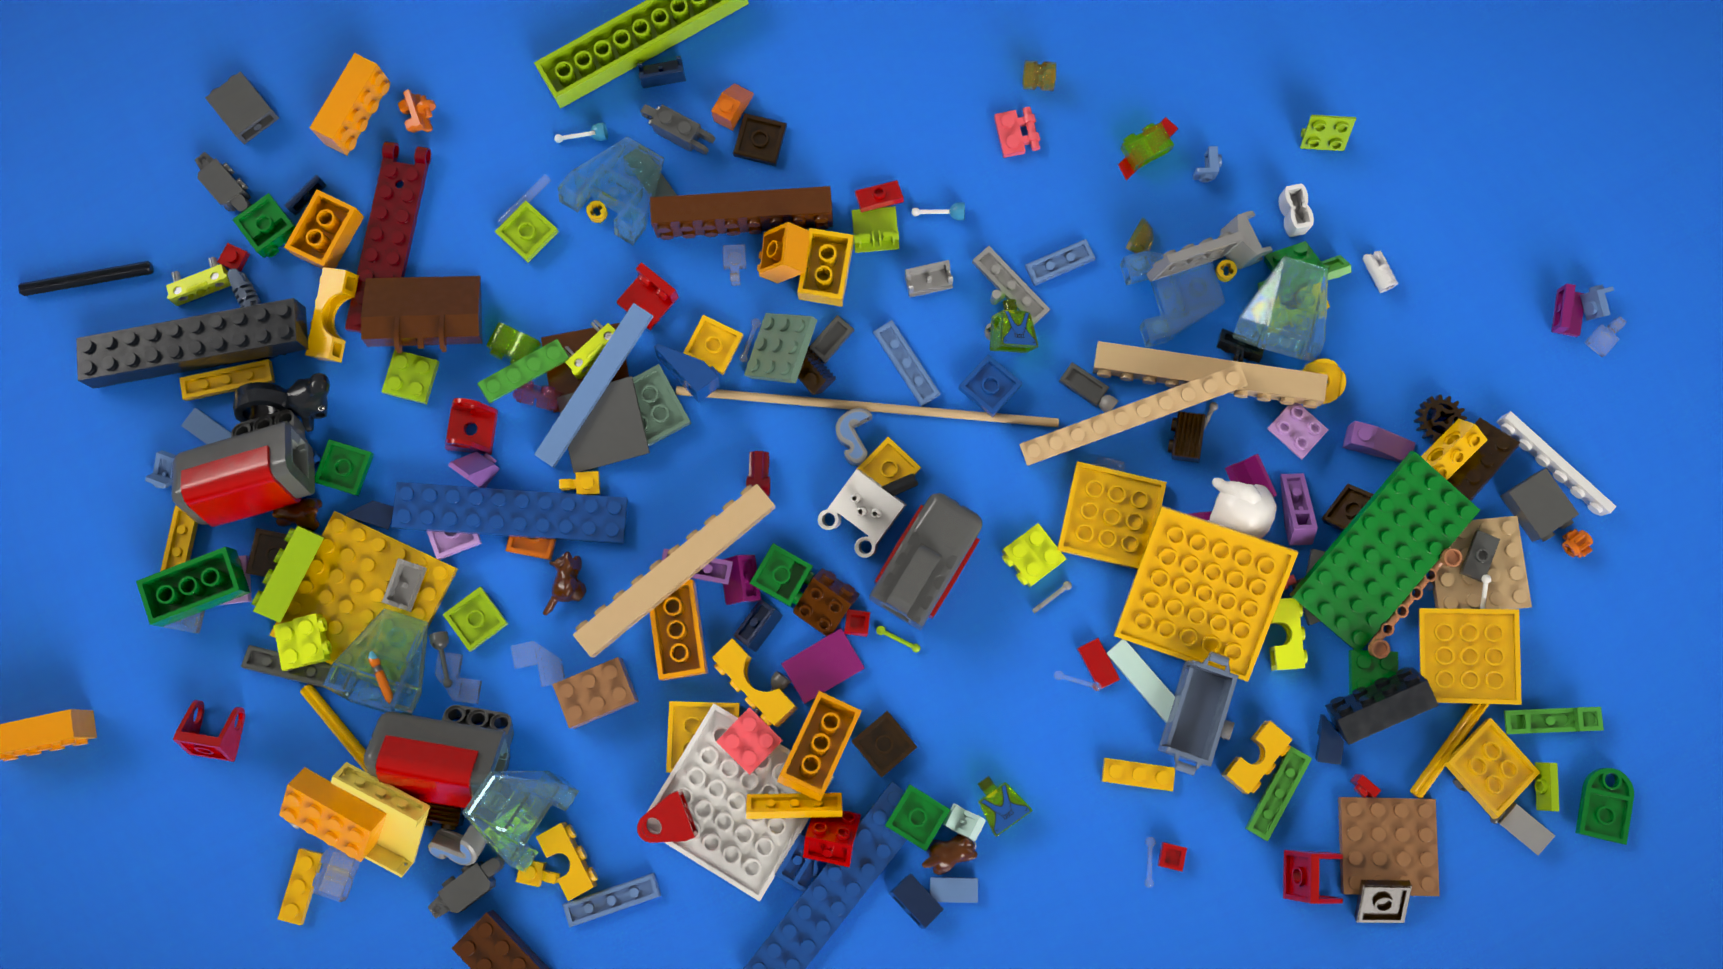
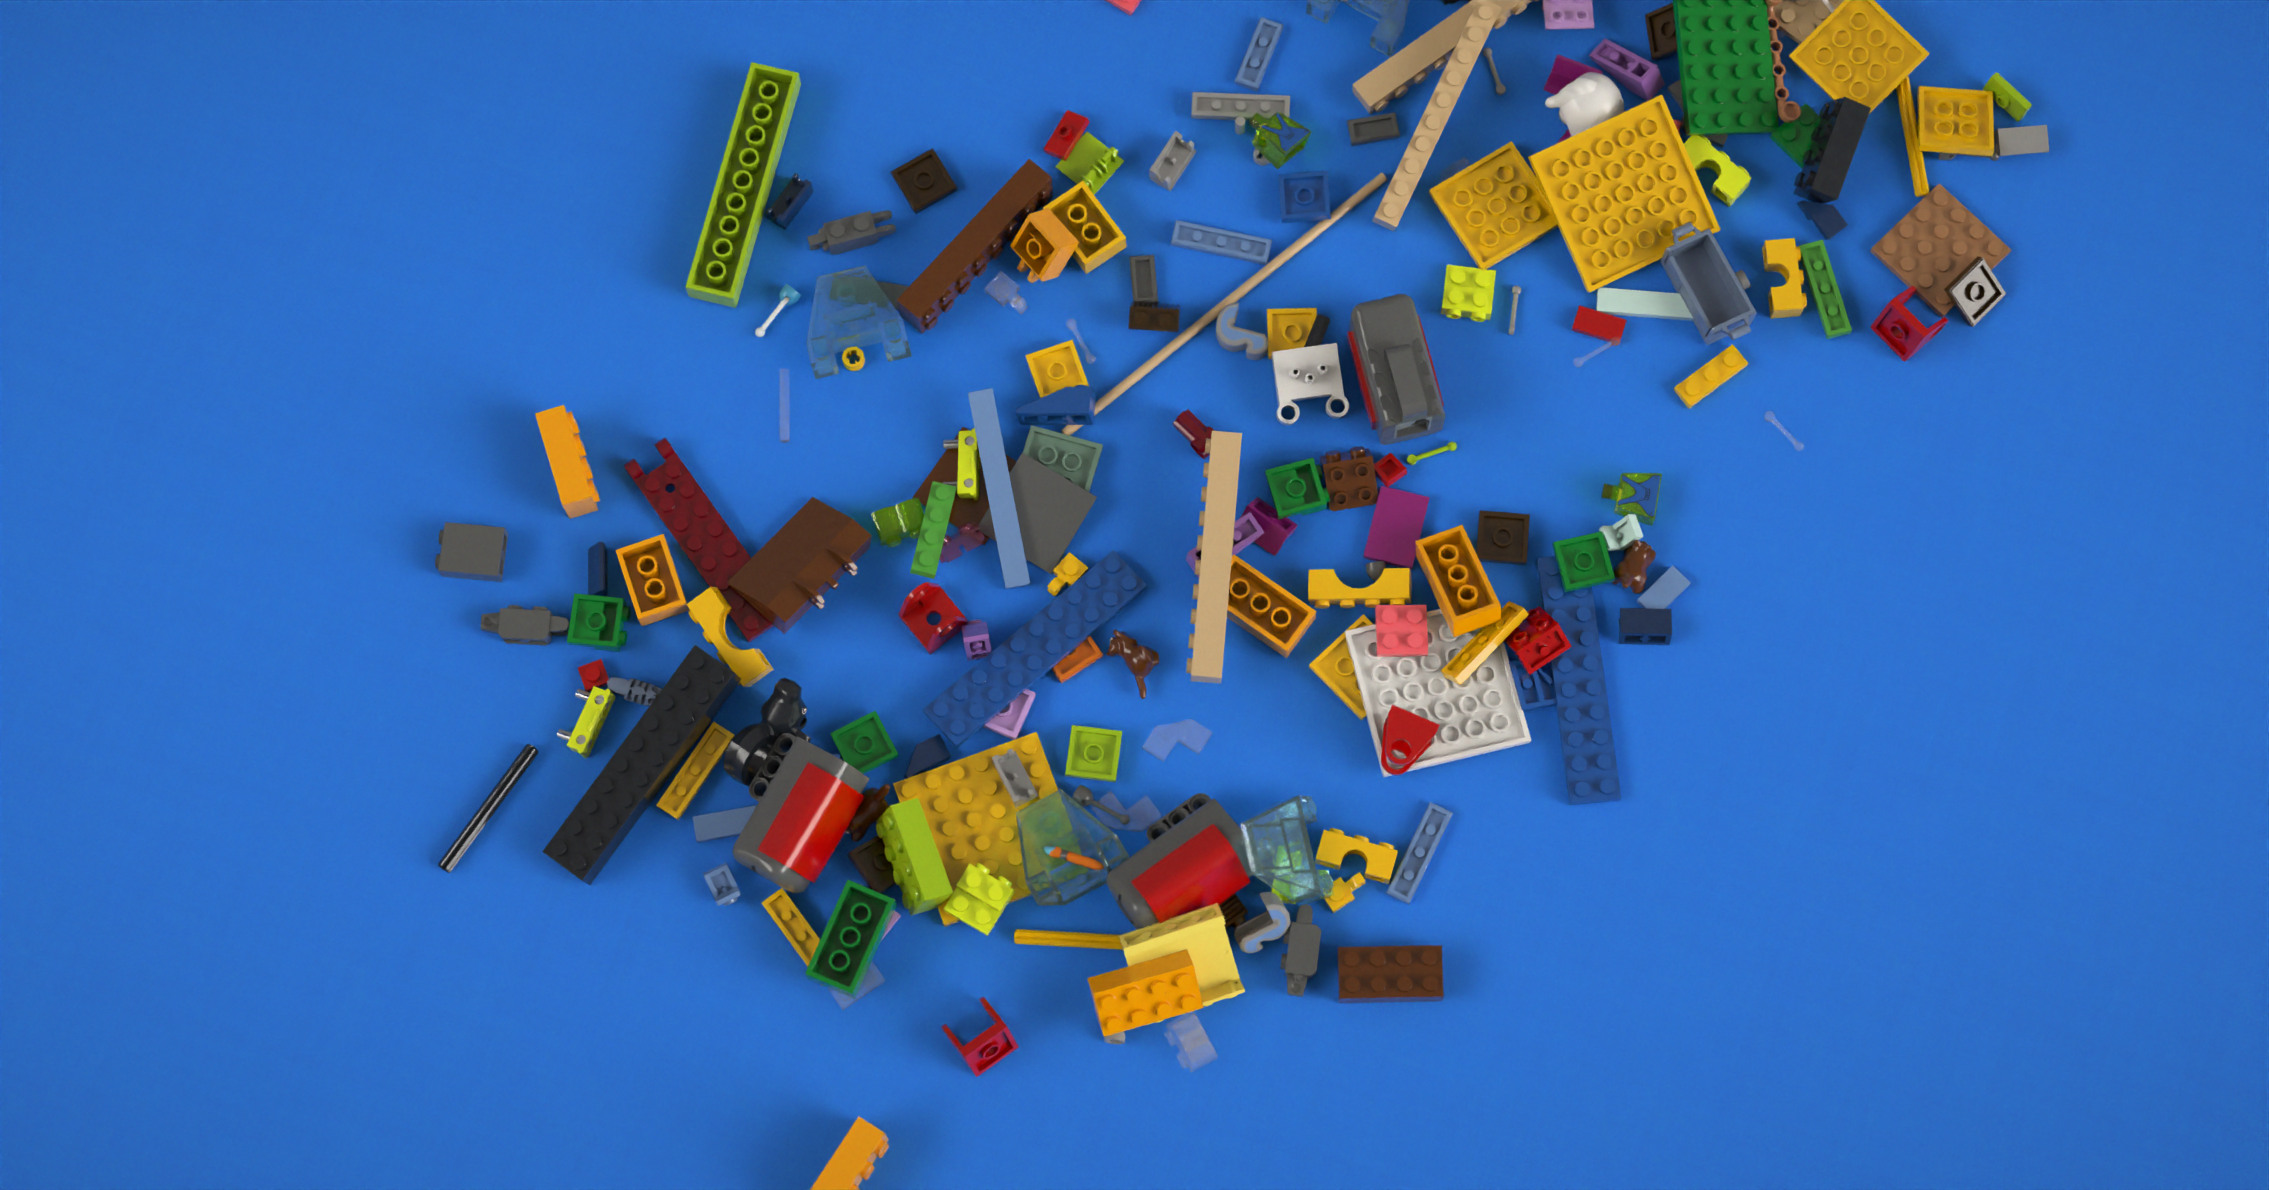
camera: 45 degrees left, 5 degrees down
(268, 662) = (972, 942): dark grey tile -> none
(300, 887) = (1172, 1081): yellow plate -> none
(410, 377) = (841, 626): lime plate -> none
(420, 111) = (611, 416): orange hips -> none
(526, 231) = (814, 426): lime plate -> none
(595, 693) = (1246, 714): medium nougat brick -> none
(649, 293) = (963, 376): red bracket -> none
(731, 106) = (875, 175): orange slope -> none
(758, 625) = (1315, 545): dark blue slope -> none
(780, 347) = (1116, 319): sand green plate -> none
(956, 211) = (1139, 89): hinge -> none
(1107, 403) = (1406, 125): light grey hinge -> none
(1172, 856) = (1795, 409): red plate -> none
(1188, 436) = (1492, 92): dark brown brick -> none
(1364, 786) = (1880, 223): red plate -> none
(1553, 720) = (1964, 45): bright green slope -> none
(1605, 809) = (2062, 73): green plate -> none

